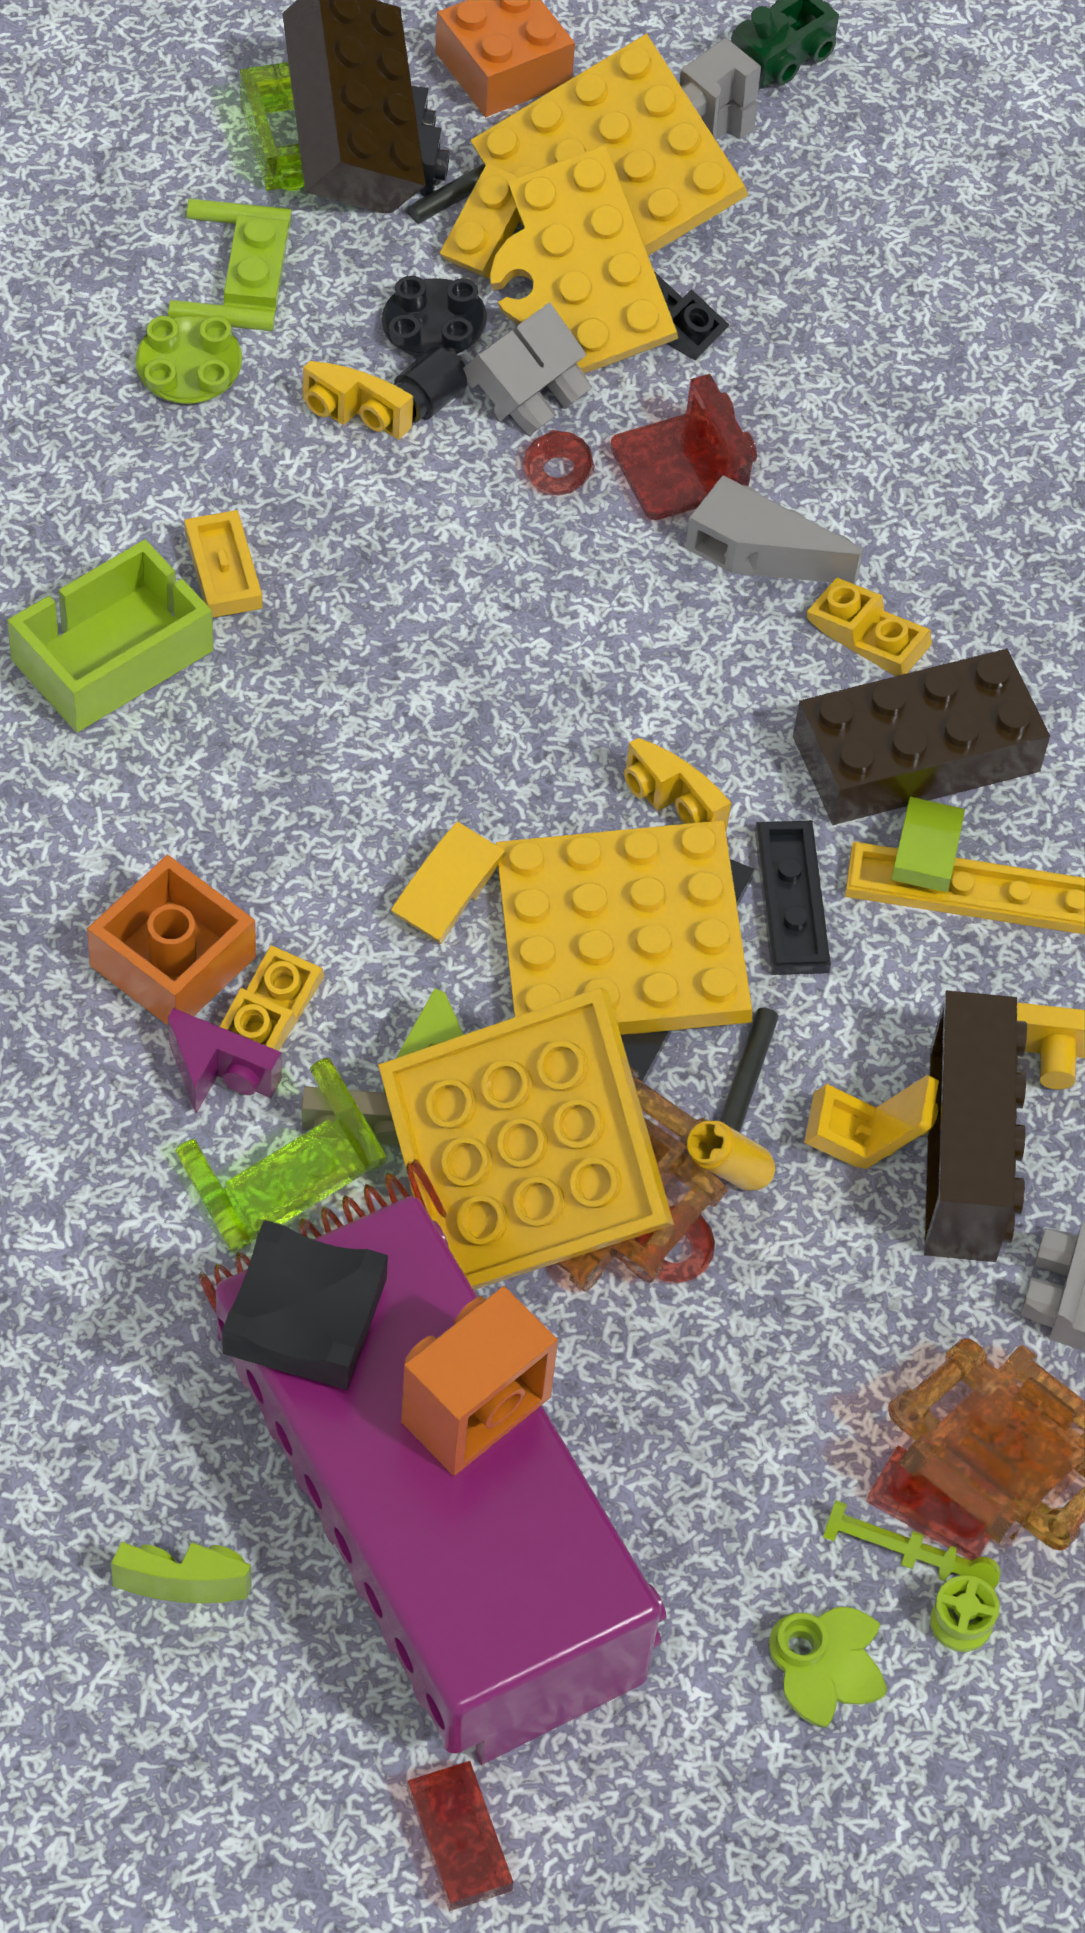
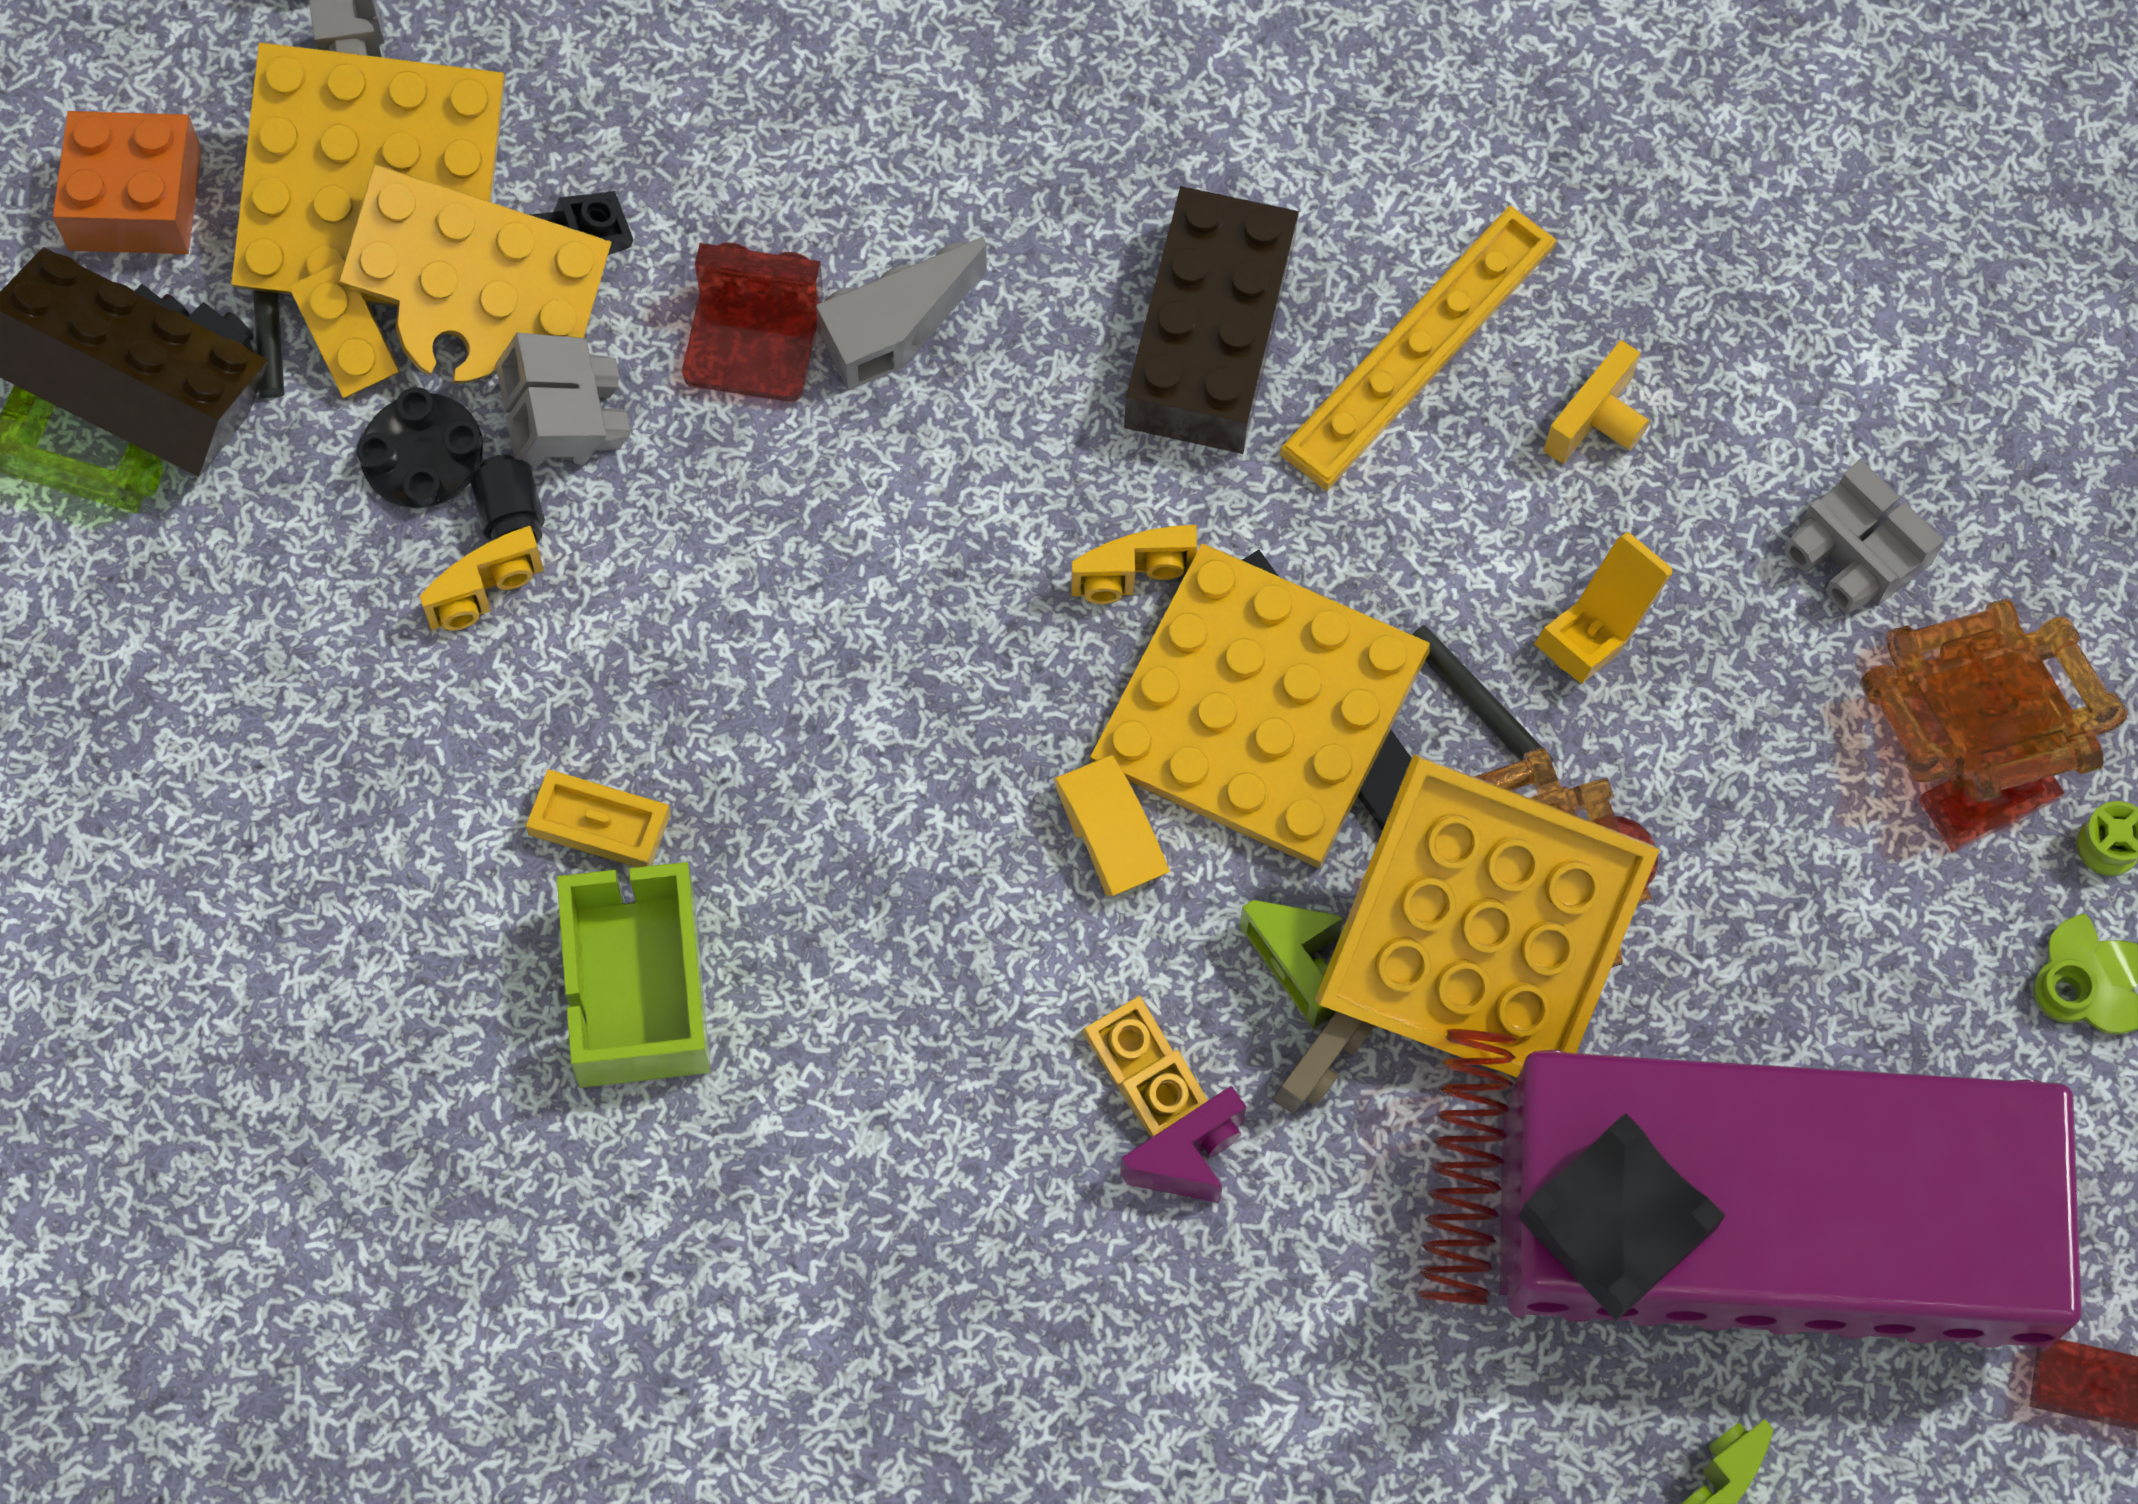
camera: 55 degrees left, 10 degrees up
(171, 941) = (1038, 1117): orange brick -> none
(188, 358) = (313, 709): lime dish -> none
(253, 266) = (232, 579): lime plate -> none
(292, 1175) = (1366, 1151): clear neon green plate -> none
(477, 1379) = (1801, 1108): orange brick -> none
(556, 445) = (675, 417): clear red piece -> none
(731, 1155) = (1582, 738): yellow piece -> none
(792, 898) = (1304, 535): black tile -> none
(860, 623) = (1042, 292): yellow slope -> none
(912, 1547) = (2076, 802): lime piece -> none
(928, 844) = (1332, 382): lime slope -> none
(975, 1134) = (1721, 560): dark brown piece -> none

